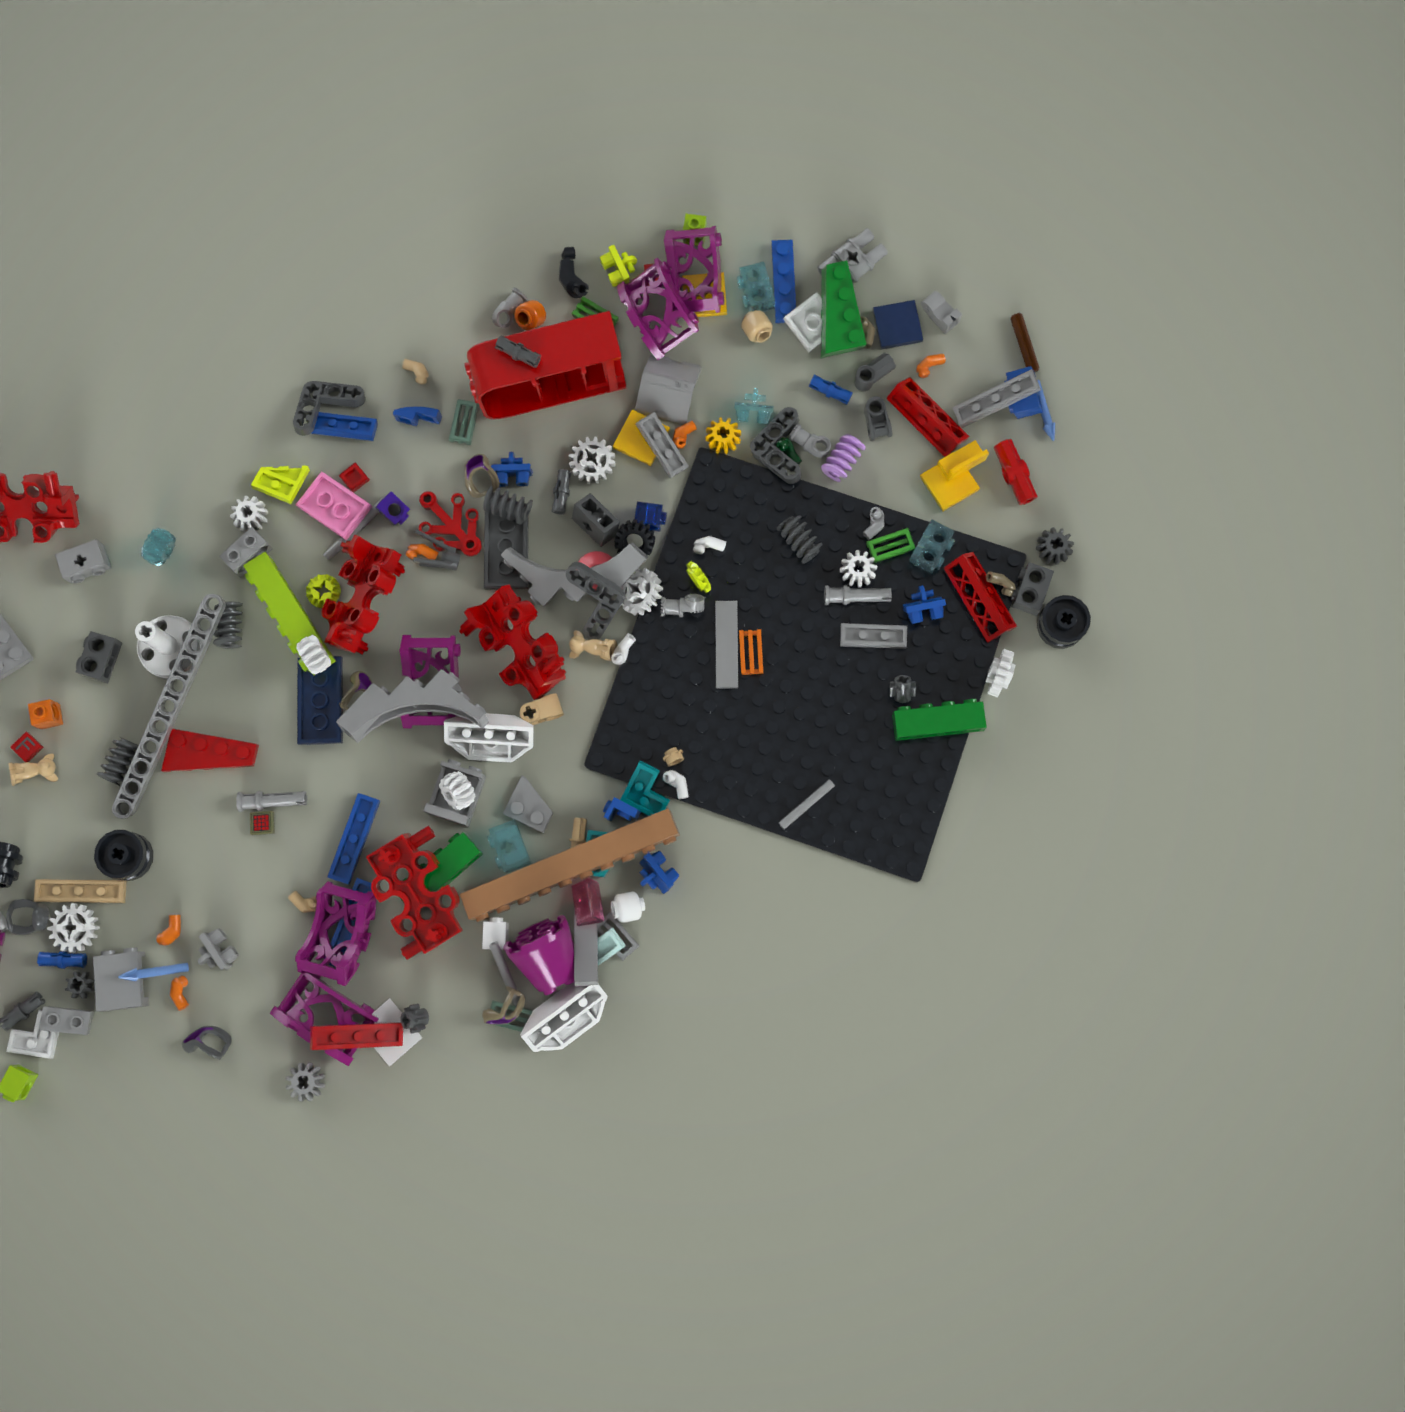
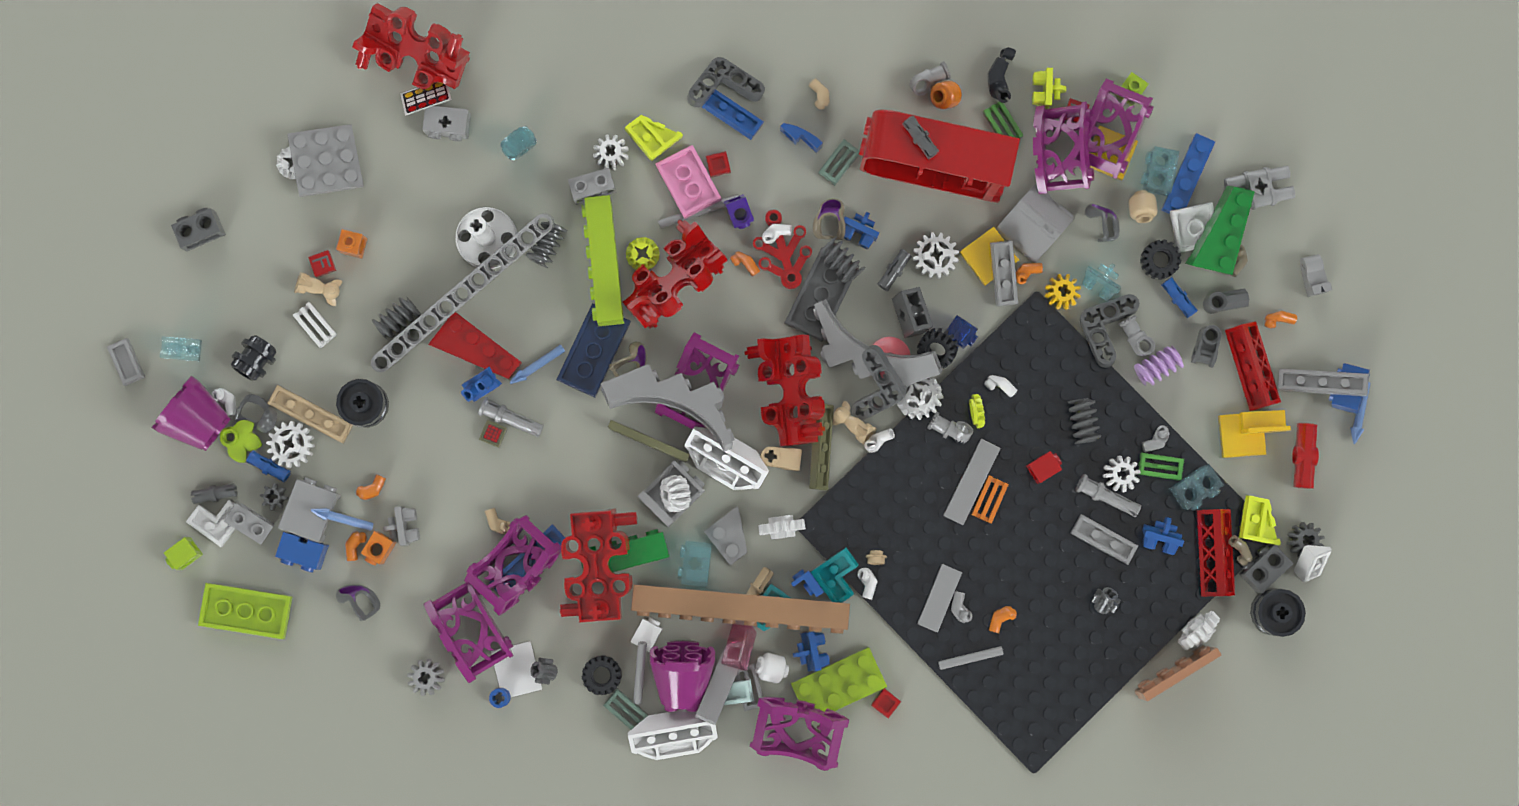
camera: 20 degrees right, 5 degrees up
(27, 948) = (243, 440): none -> lime plate
(29, 799) = (303, 311): none -> white tile
(52, 548) = (420, 99): none -> sticker
(102, 1107) = (245, 611): none -> lime plate
(104, 658) = (425, 220): dark grey brick -> none
(138, 1023) = (294, 550): none -> blue brick
(195, 976) = (387, 546): none -> orange brick
(227, 783) = (480, 385): none -> blue hips
(263, 756) = (522, 374): none -> medium blue piece
(313, 654) = (609, 314): white gear -> none
(353, 839) = (565, 488): blue plate -> none
(356, 1036) = (488, 662): red plate -> none
(382, 1072) = (505, 693): none -> blue bush
(410, 756) = (649, 441): none -> olive tile
(434, 510) = (775, 231): none -> white arm
(448, 560) = (765, 283): dark grey plant -> none
(459, 988) = (592, 685): none -> black tyre
(492, 1016) = (611, 704): dark tan piece -> none
(571, 771) = (781, 527): none -> white gear
(576, 687) = (821, 453): none -> olive tile
(698, 891) = (841, 682): none -> lime plate
(701, 927) = (828, 721): none -> magenta fence
(717, 352) = (1096, 211): none -> dark grey piece
(750, 764) = (939, 598): none -> light grey tile
(750, 886) = (886, 703): none -> red tile
(773, 765) = (959, 609): none -> light grey arm
(785, 597) = (1044, 467): none -> red brick
(787, 448) = (1113, 330): dark green arm -> none
(796, 352) = (1169, 250): none -> black tyre
(814, 752) = (1000, 616): none -> orange arm
(897, 324) = (1269, 267): dark blue tile -> none
(939, 720) = (1123, 644): green brick -> none
(996, 726) = (1181, 670): none -> nougat plate
(1003, 550) = (1258, 521): none -> neon yellow wing
(1024, 341) = (1375, 341): reddish brown axle -> none
(1070, 561) = (1311, 562): none -> white slope

